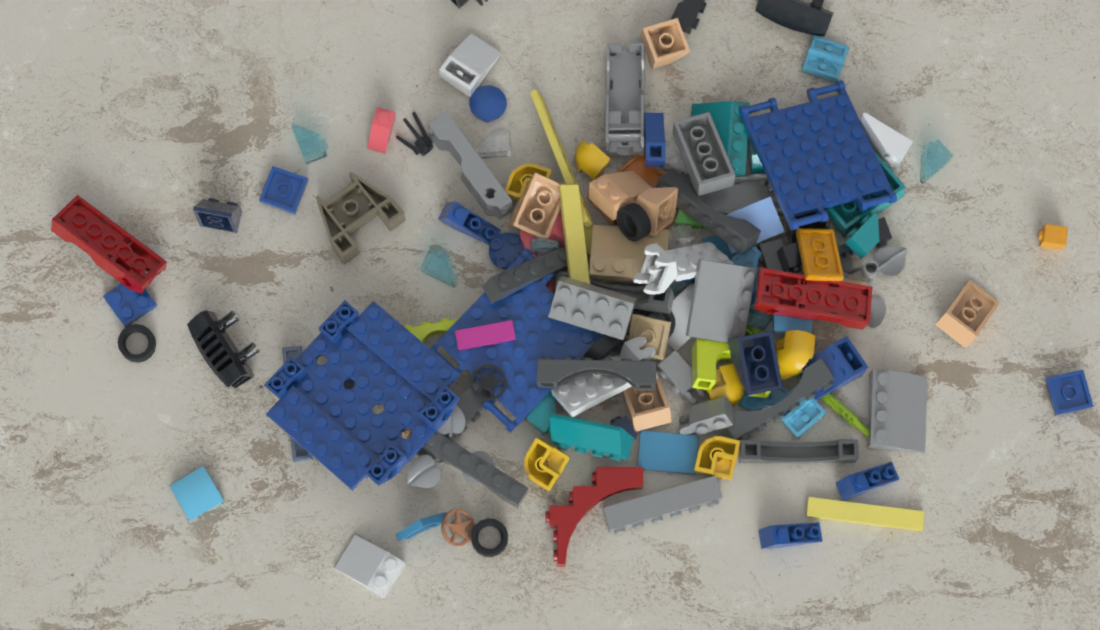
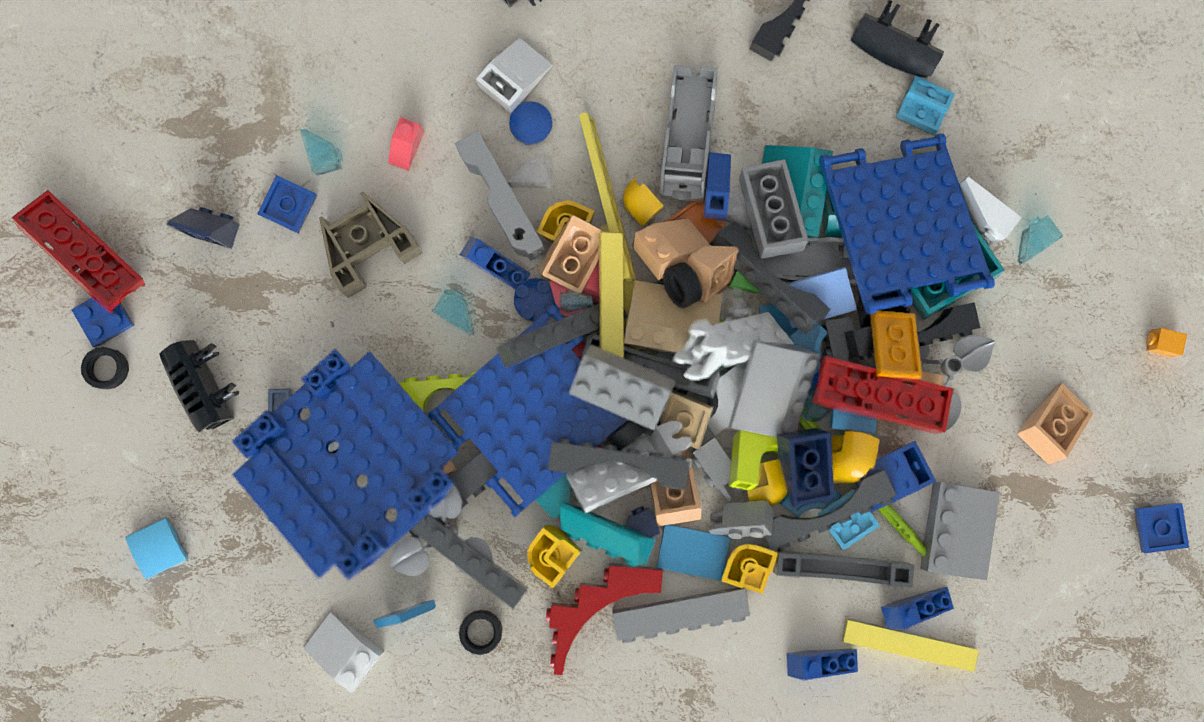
camera: 10 degrees right, 10 degrees up
(423, 144) = (451, 166): black plant -> none
(457, 527) = (445, 617): nougat wheel -> none
(485, 335) = (495, 403): dark pink tile -> none
(488, 382) = (493, 459): black wheel -> none
(664, 43) = (741, 69): light nougat slope -> none
(865, 237) = (952, 326): teal slope -> none

